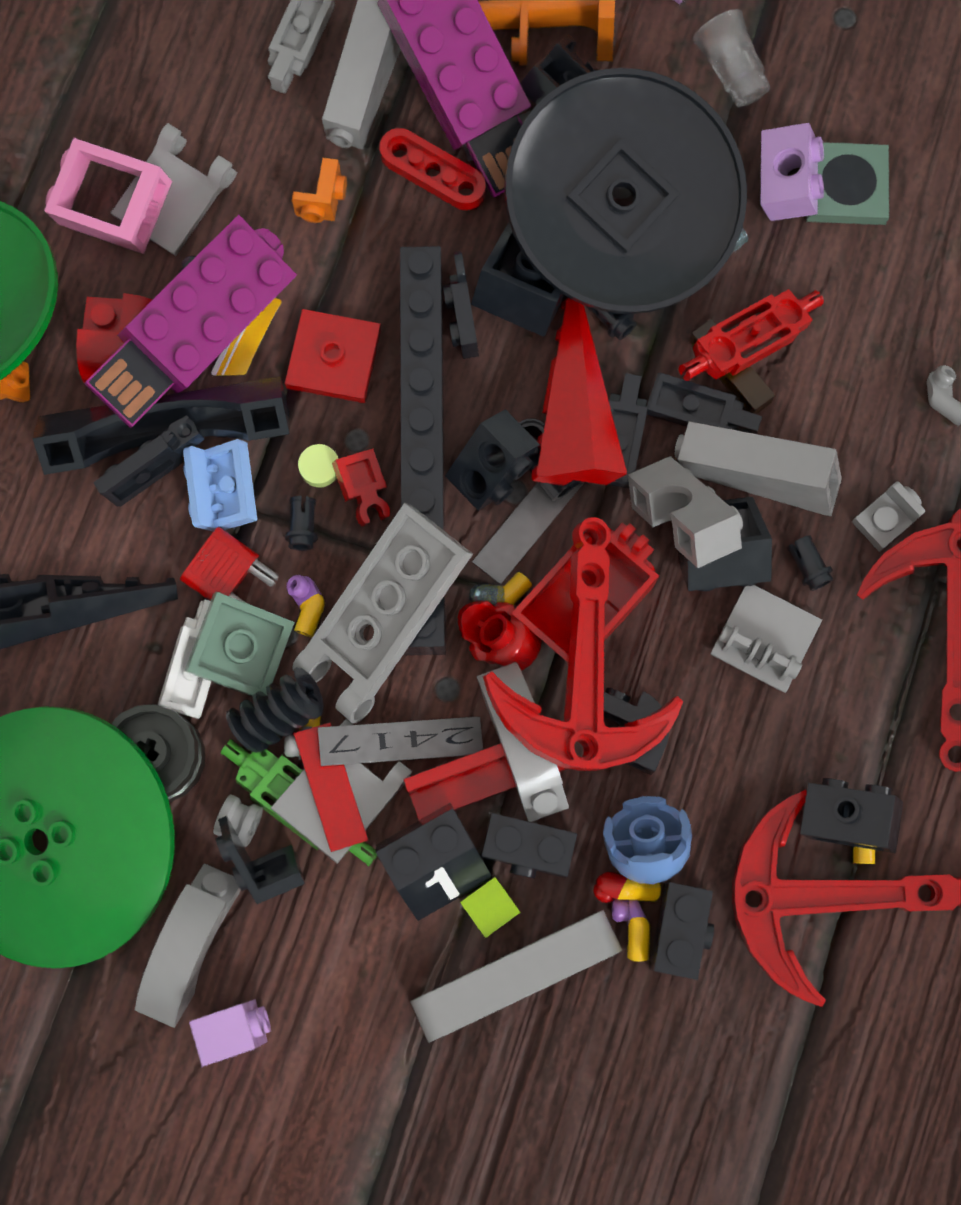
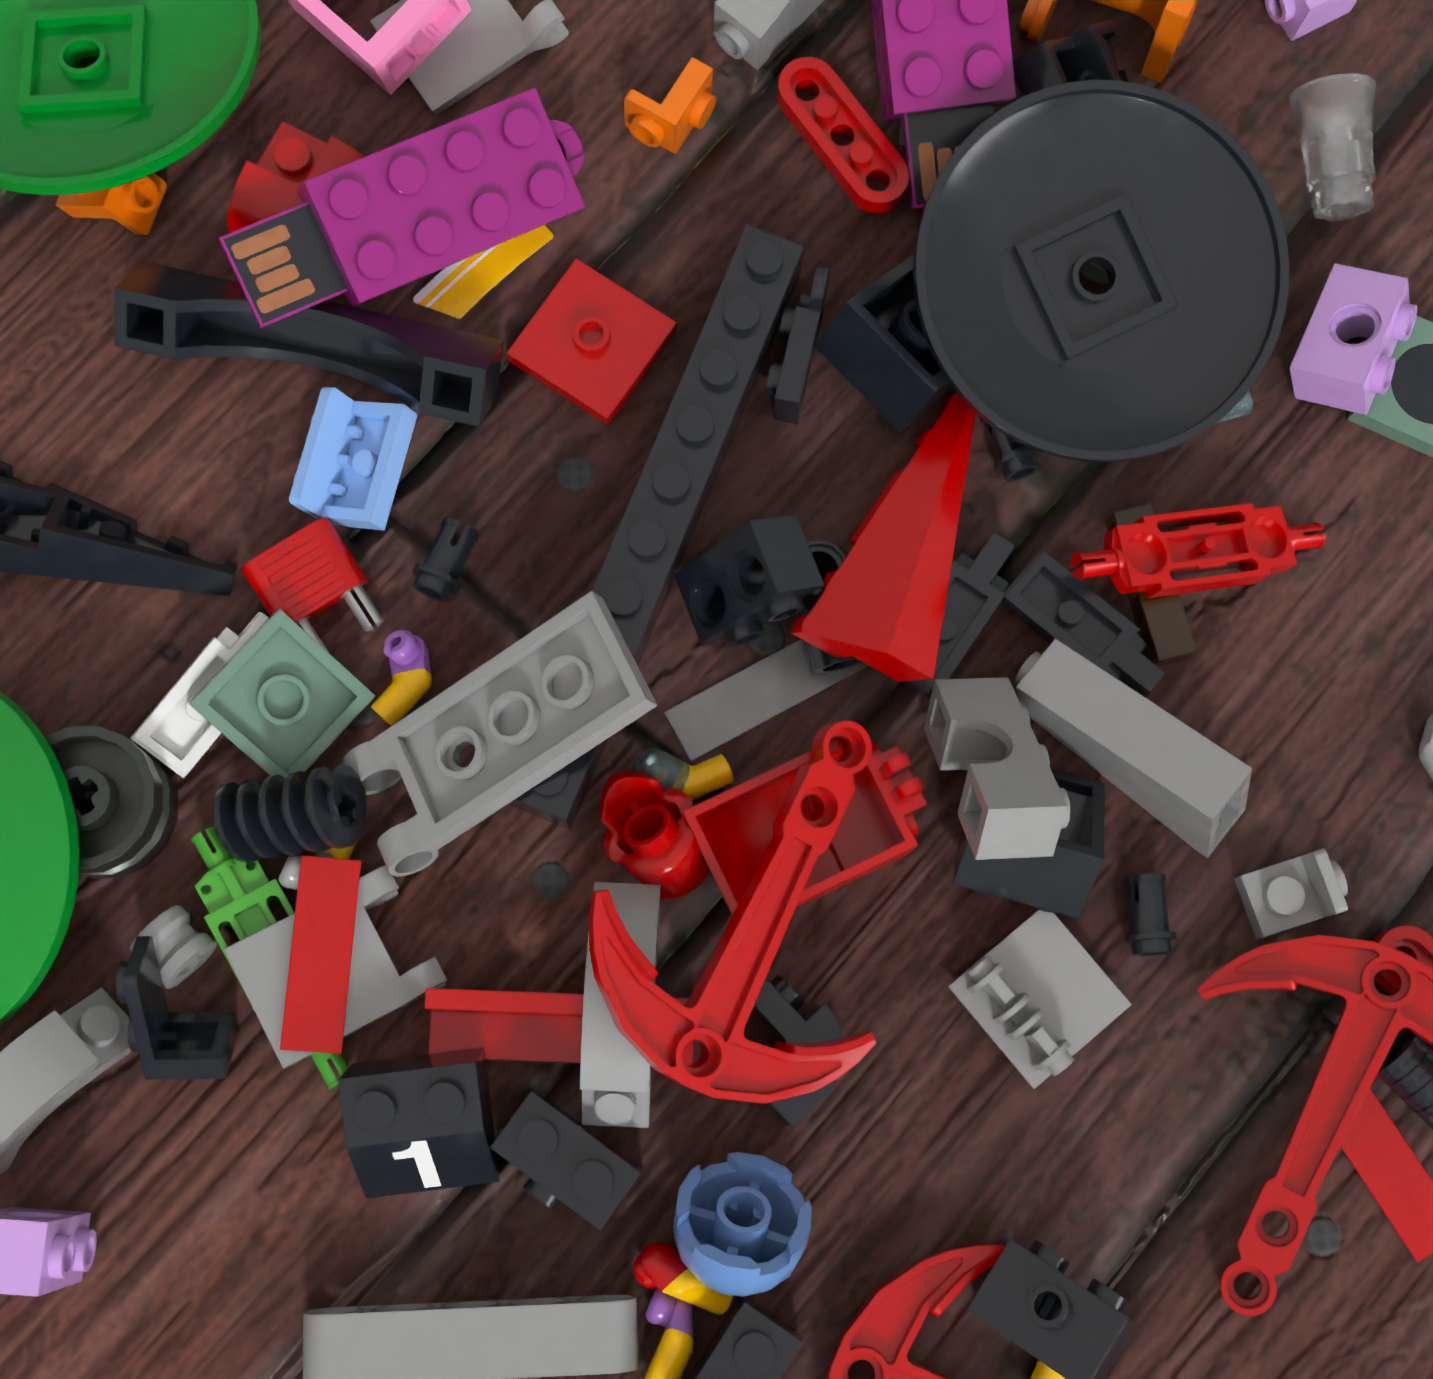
camera: 15 degrees right, 0 degrees up
(149, 463) = (268, 388): black hinge -> none
(316, 465) = (506, 488): yellowish green tile -> none
(361, 480) = (554, 531): red plate -> none
(399, 741) = (449, 928): flat silver sticker -> none
(490, 907) = (477, 1223): lime tile -> none

